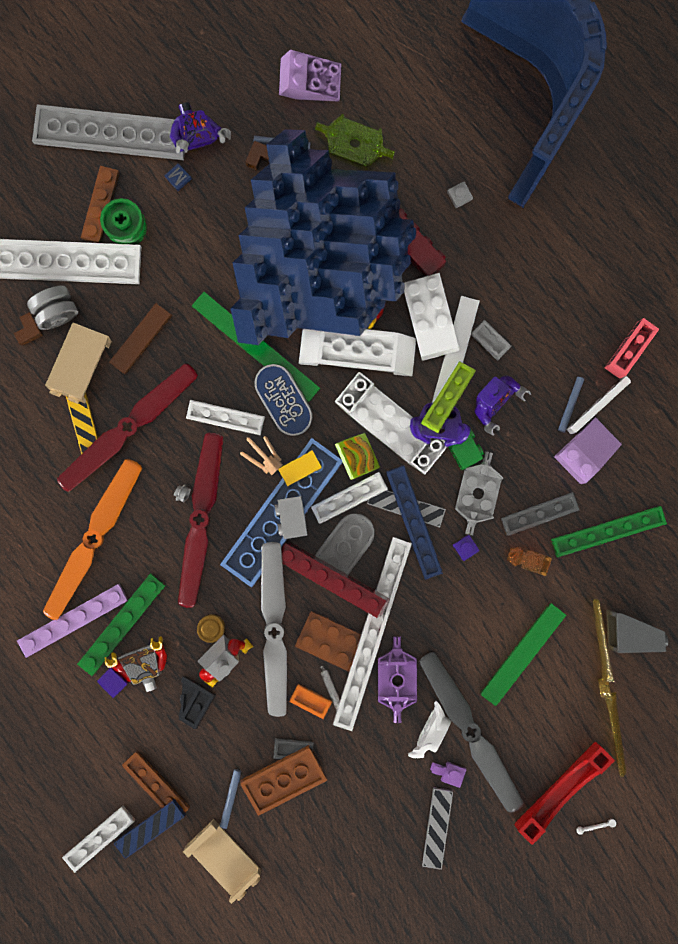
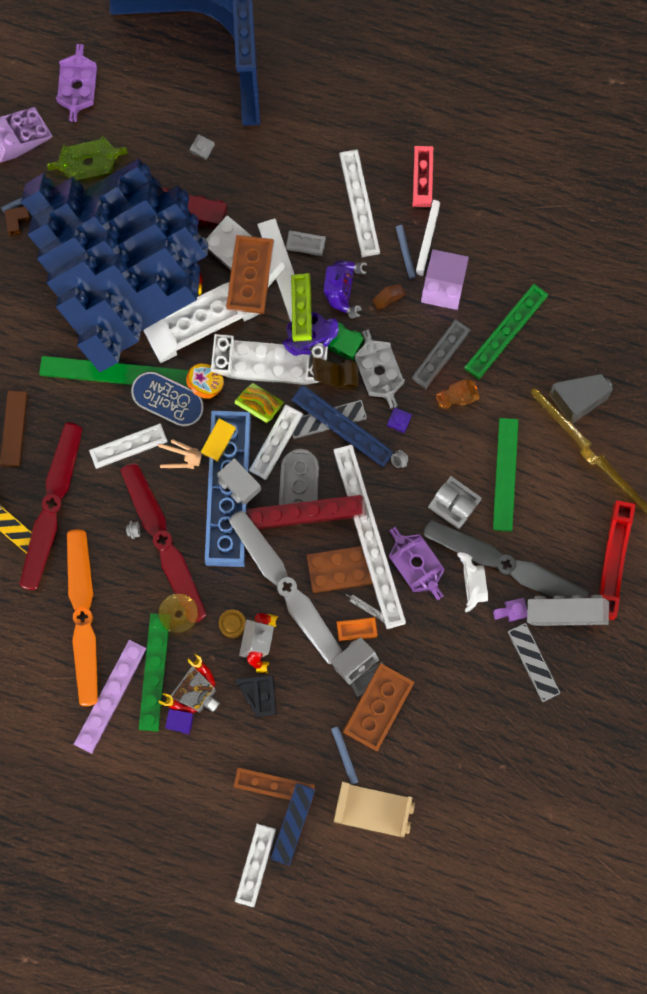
camera: 30 degrees left, 10 degrees down
(161, 591) = (176, 603): none -> clear yellow dish
(289, 728) = (354, 660): none -> light grey brick
(323, 406) = (203, 381): none -> tile
(396, 52) = (73, 70): none -> medium lavender plate
(423, 340) = (250, 274): none -> dark orange plate
(438, 474) = (338, 375): none -> dark brown door
(443, 582) = (399, 459): none -> light grey plate
(464, 651) = (454, 502): none -> light grey plate
(495, 813) = (568, 611): none -> light grey brick
(530, 434) = (387, 295): none -> reddish brown piece
(561, 334) = (359, 203): none -> white tile

